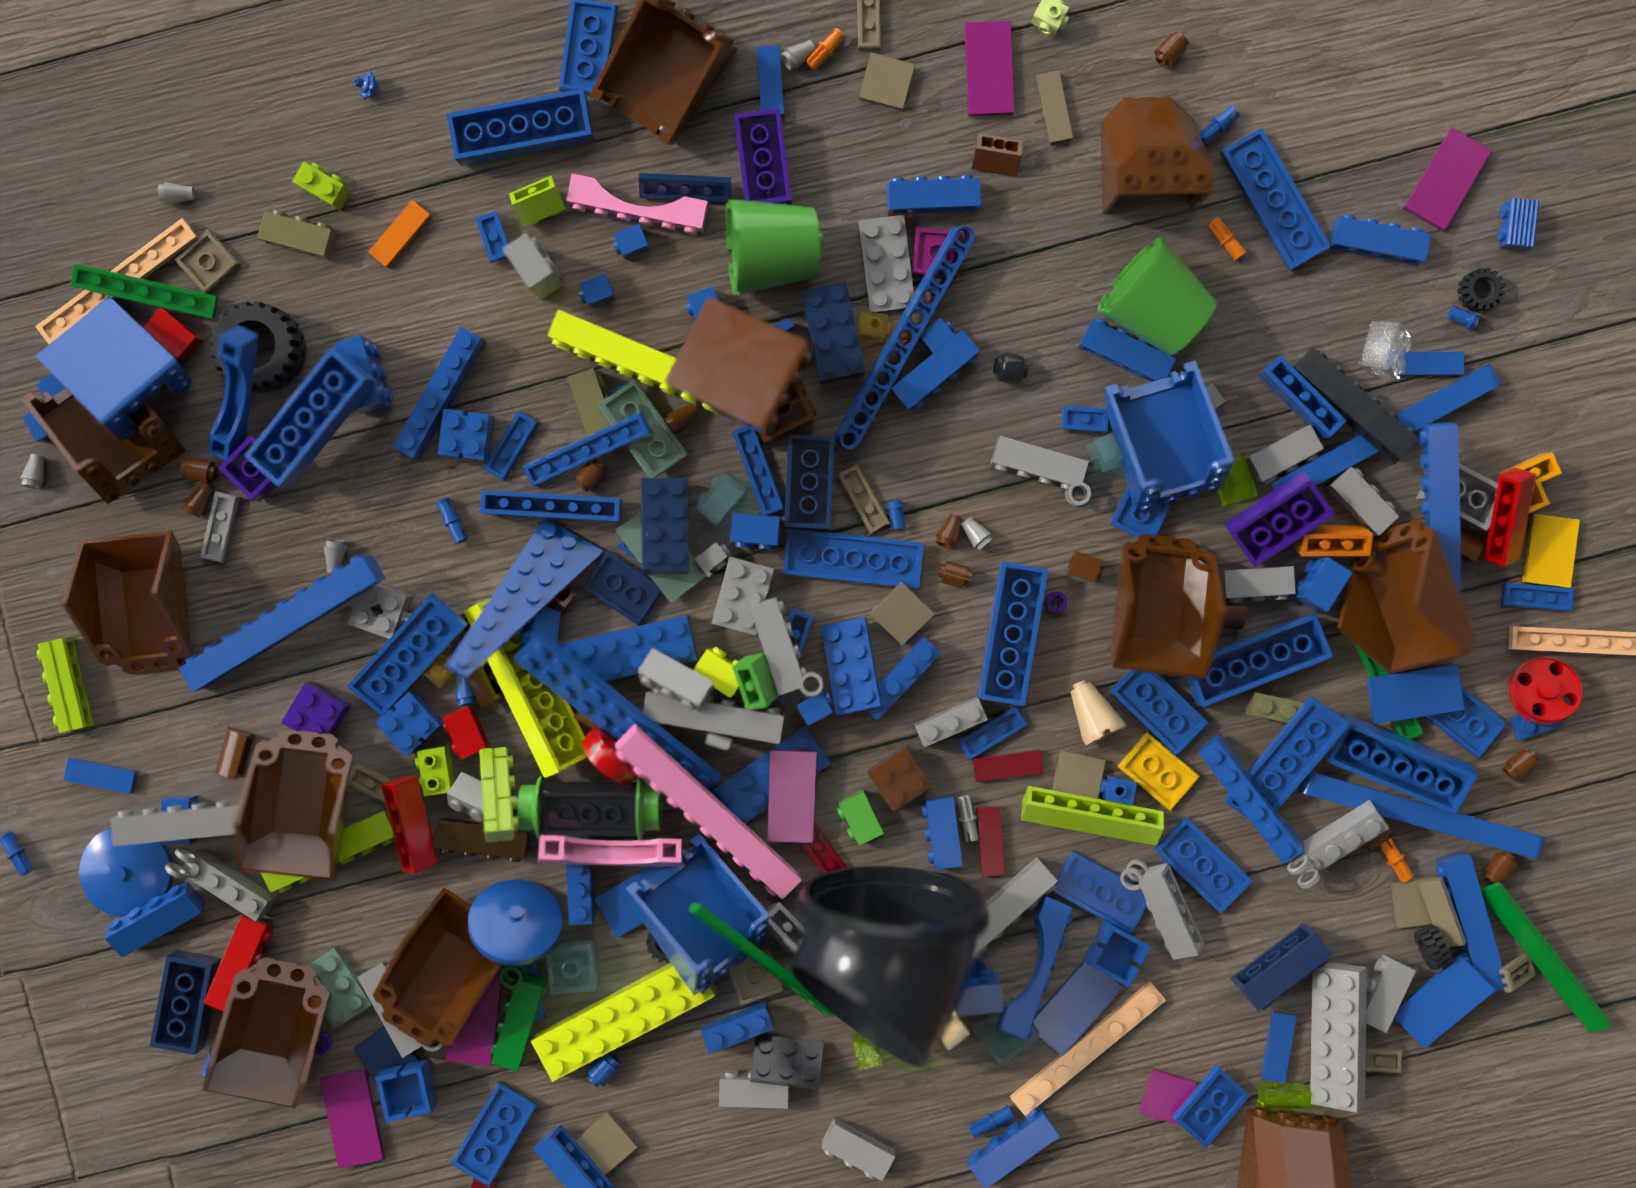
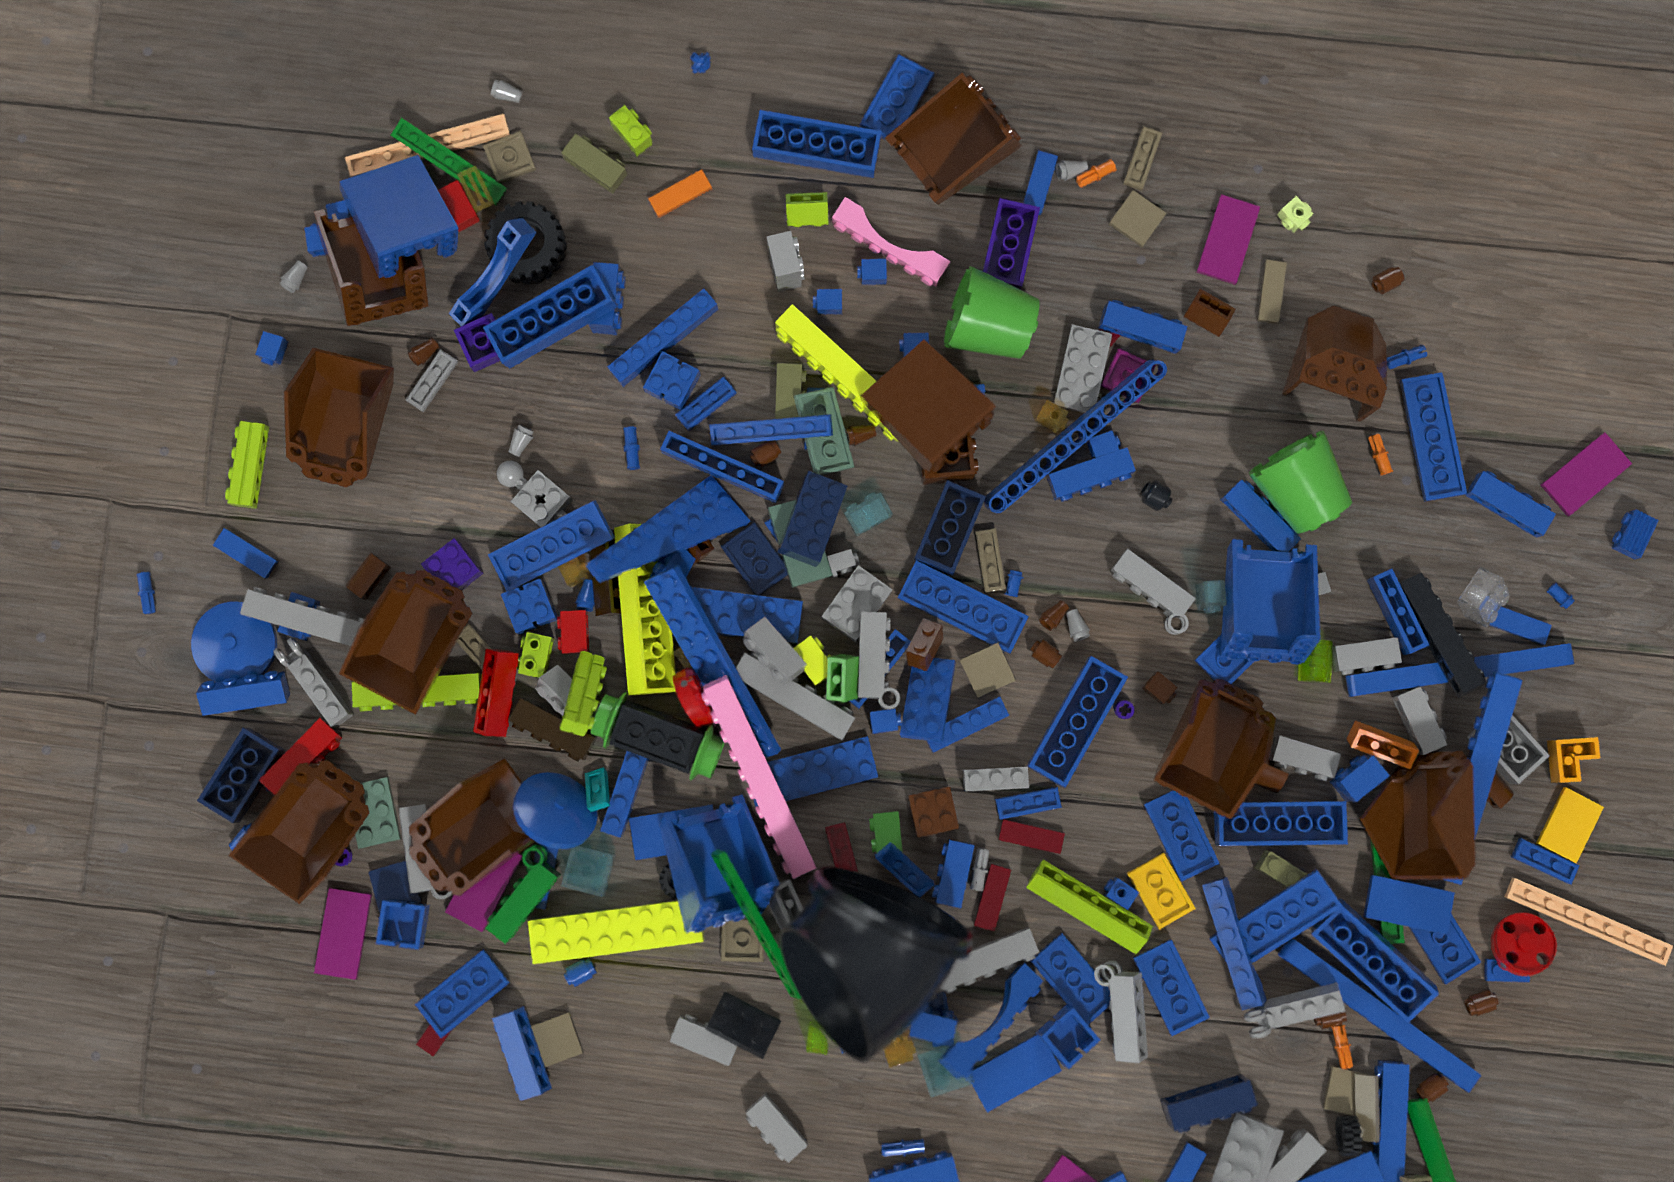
camera: 20 degrees right, 5 degrees down
(41, 556) = (271, 348): none -> blue brick
(168, 295) = (468, 172): none -> clear yellow tile
(199, 470) = (434, 326): reddish brown brick -> none
(283, 622) = (456, 479): blue brick -> none
(493, 235) = (758, 224): blue plate -> none
(550, 884) = (597, 789): none -> teal plate
(612, 853) = (635, 769): bright pink arch -> none
(679, 186) = (929, 240): dark blue plate -> none
(719, 740) = (791, 717): light grey tile -> none
(737, 1027) = (711, 978): blue brick -> none
(755, 529) = (888, 551): blue brick -> none
(758, 470) = (909, 502): blue tile -> none
(791, 796) = (834, 792): magenta tile -> none
(828, 613) = (924, 644): none -> reddish brown brick
(833, 332) = (1016, 409): dark blue brick -> none
(891, 848) = (904, 869): none -> blue tile
(1078, 774) = (1090, 867): dark tan tile -> none
(1084, 419) = (1204, 562): blue plate -> none
(1087, 1048) = (1011, 1114): light nougat plate -> none
(1094, 713) = (1123, 819): tan cone -> none
(1279, 519) = (1342, 707): dark purple brick -> none
(1493, 283) = (1596, 578): black tyre -> none
(1509, 516) = (1542, 779): red brick -> none

